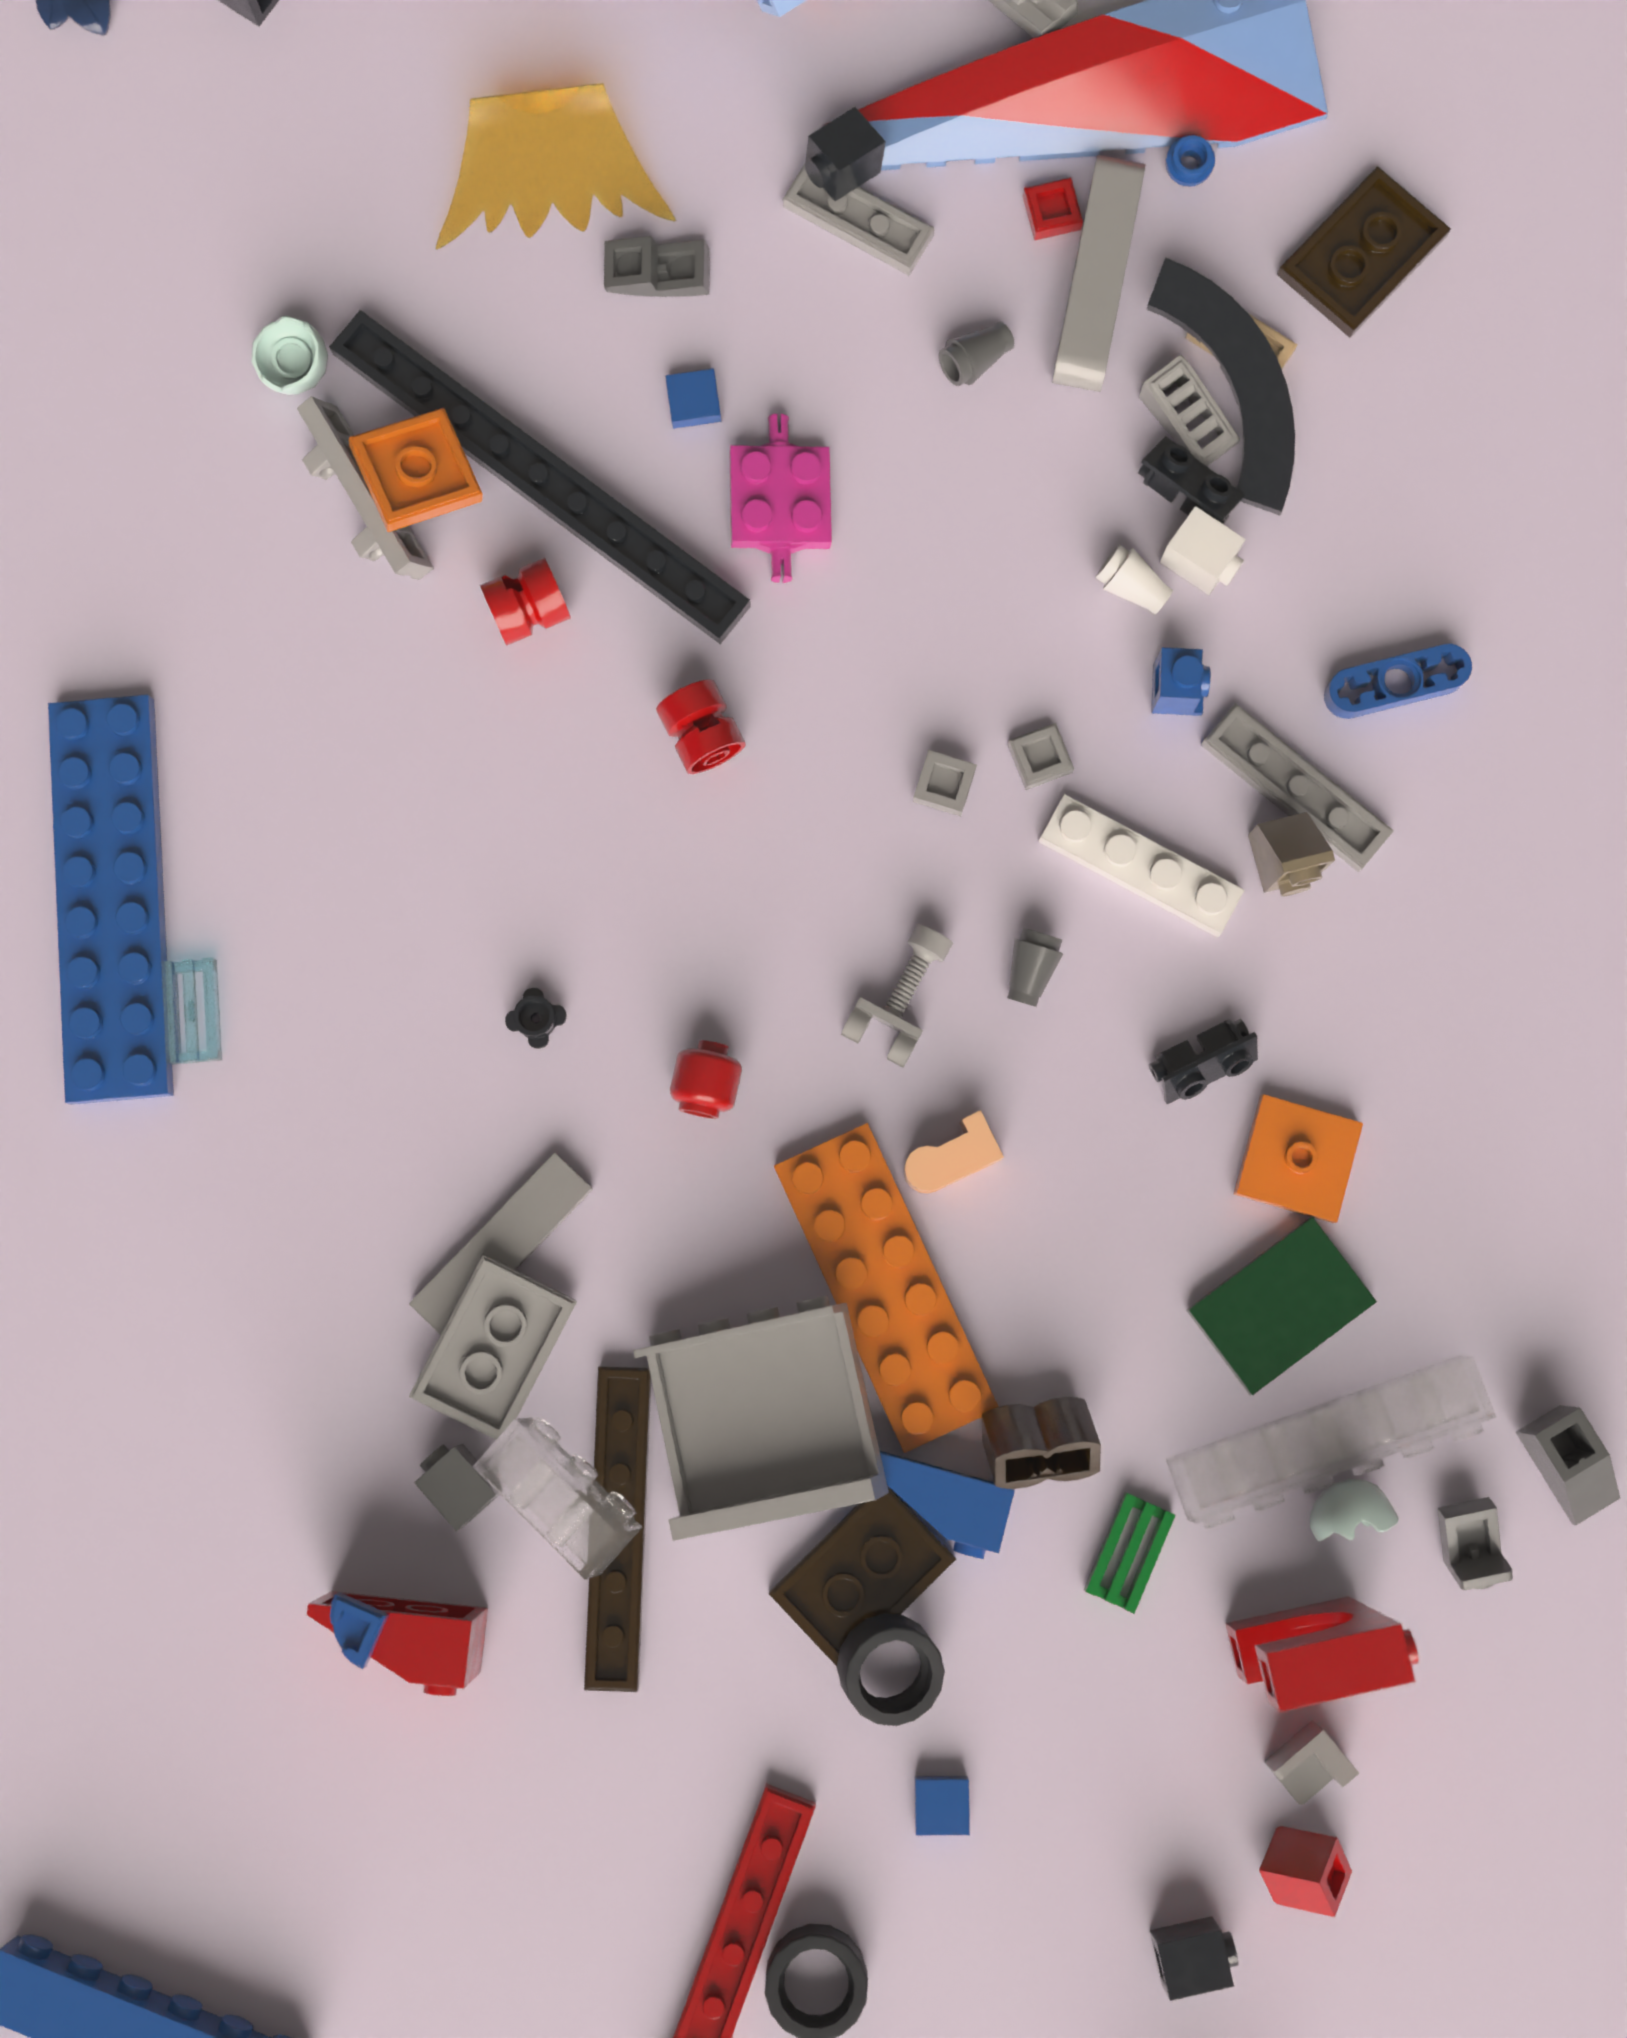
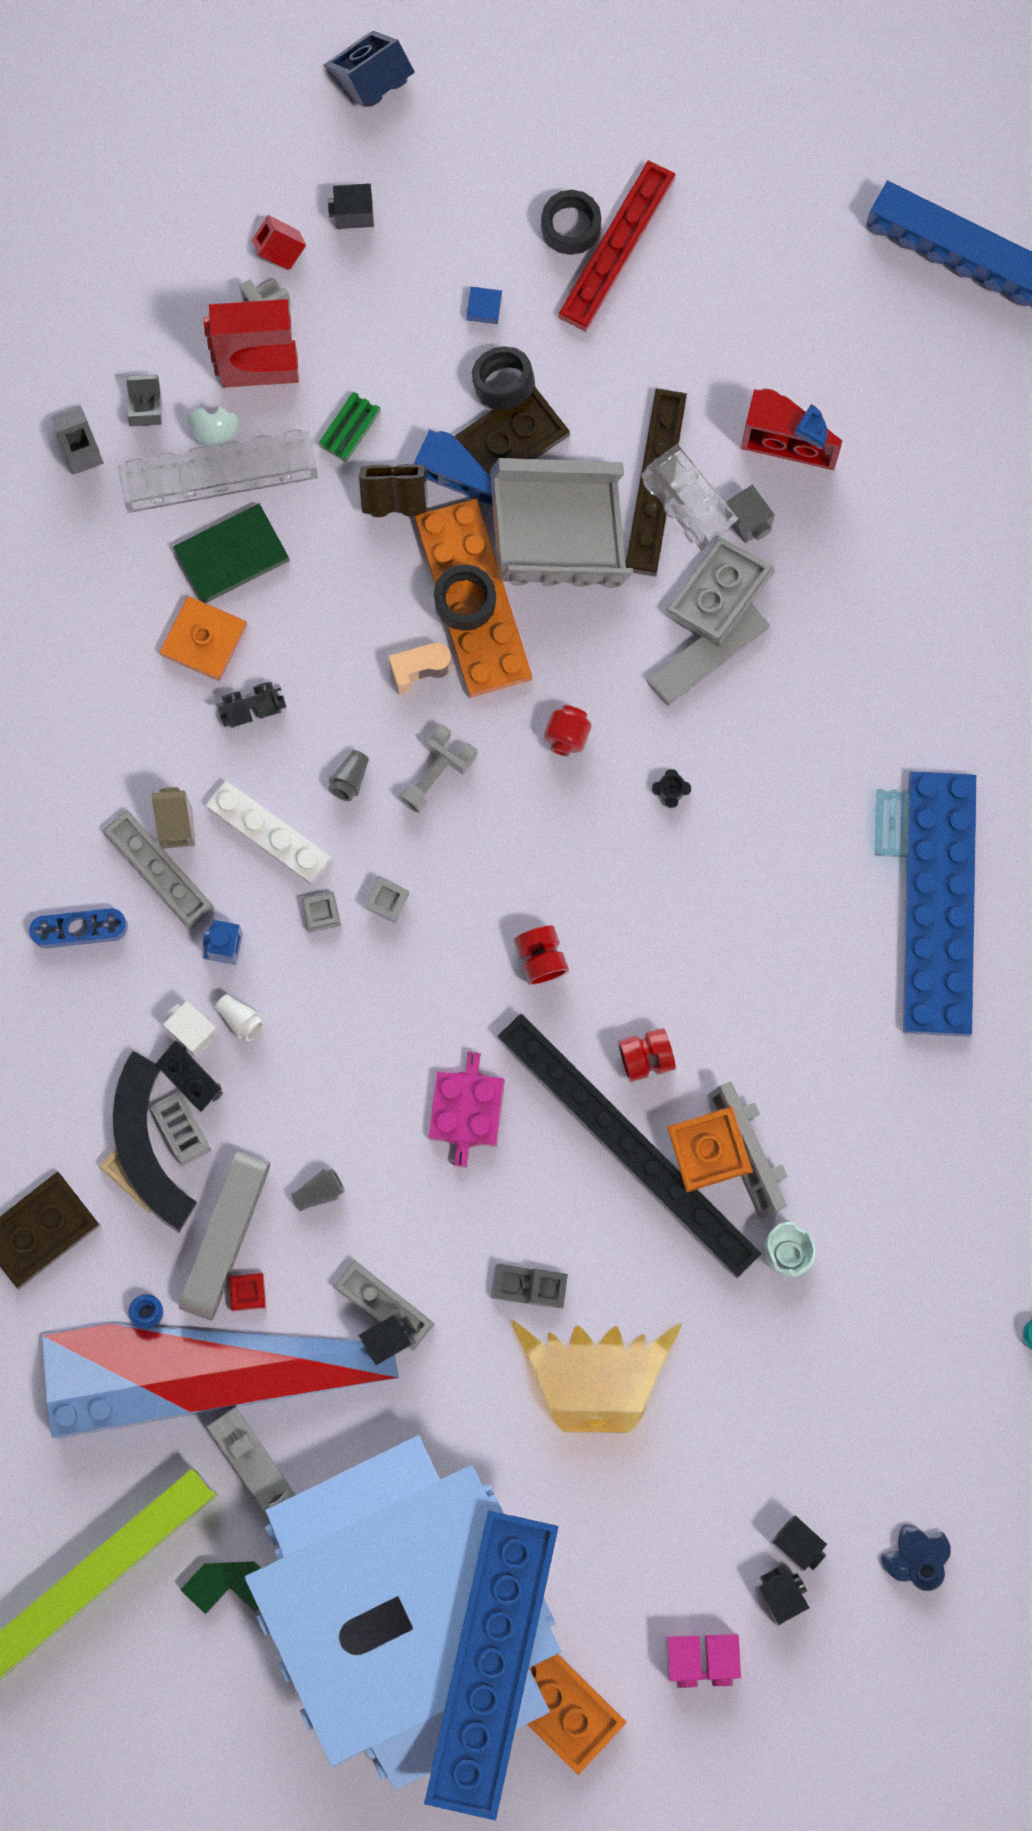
camera: 175 degrees left, 5 degrees down
(693, 398) = (516, 1188): blue tile -> none
(936, 1272) = (462, 573): none -> black tyre

